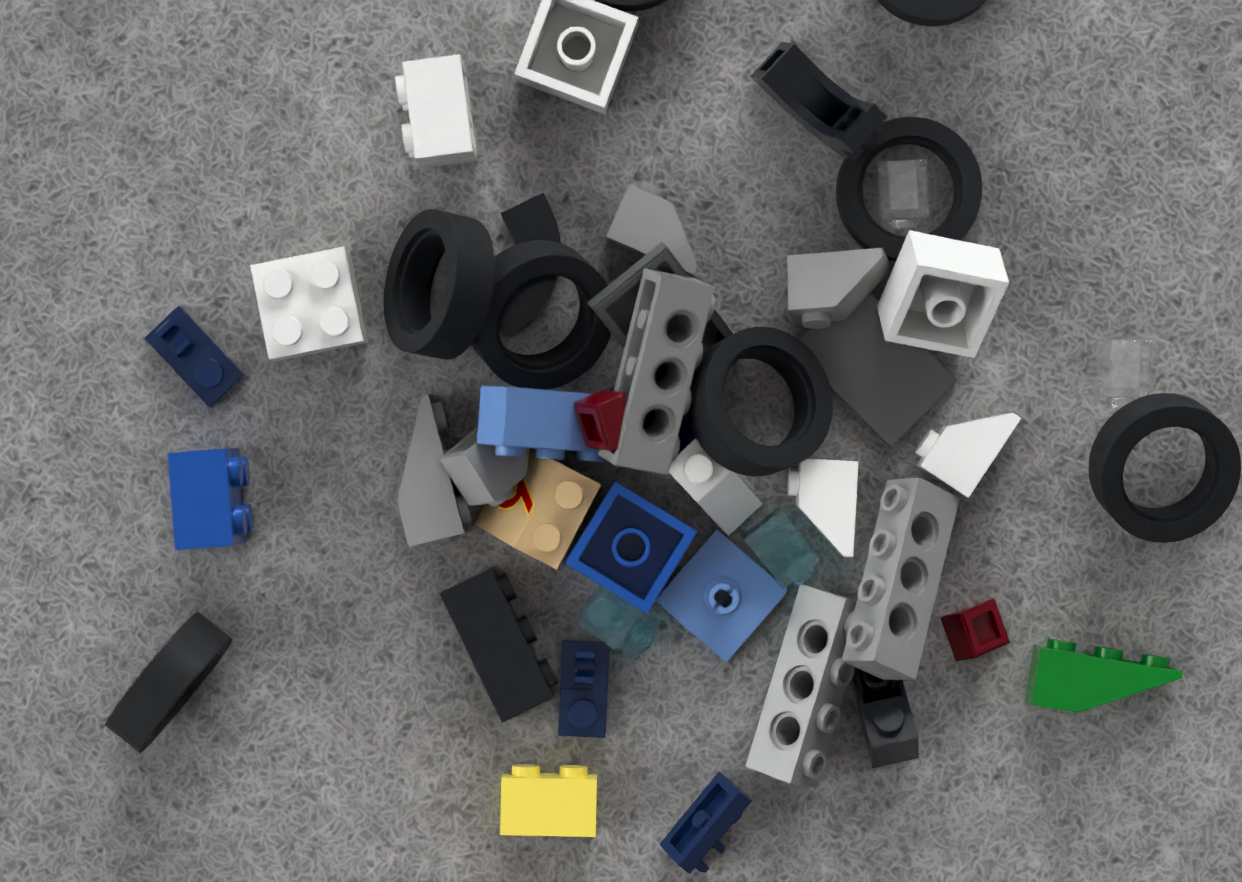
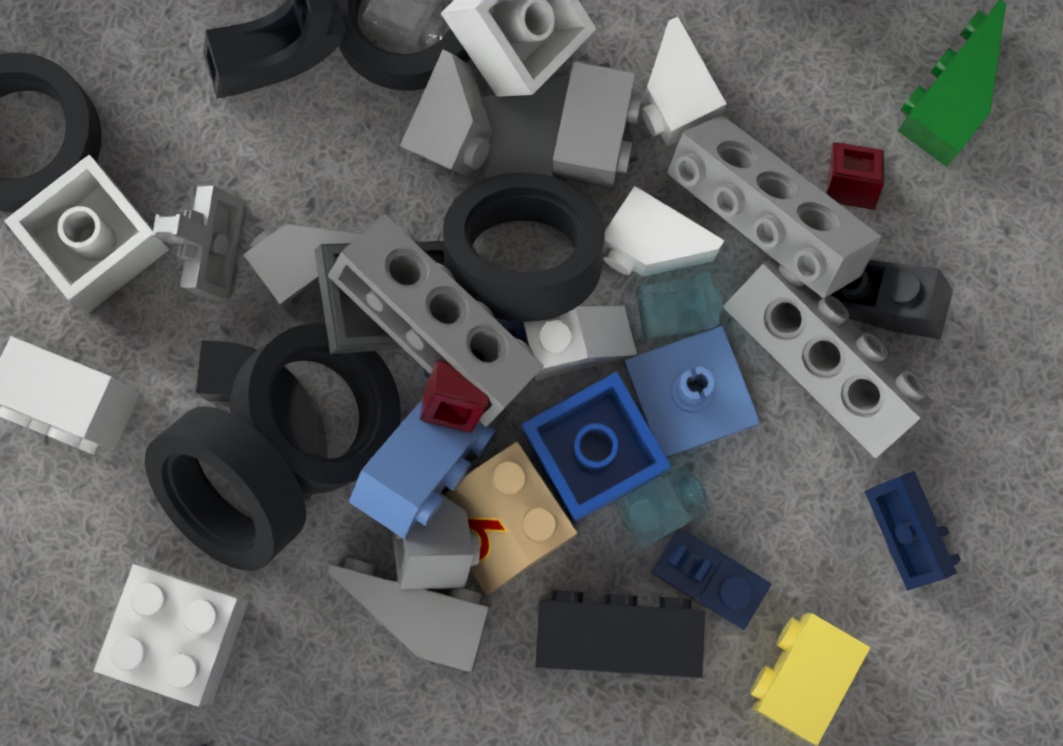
camera: 55 degrees left, 10 degrees down
(625, 145) = (206, 241): none -> light grey hinge
(891, 402) = (594, 125): none -> light grey brick

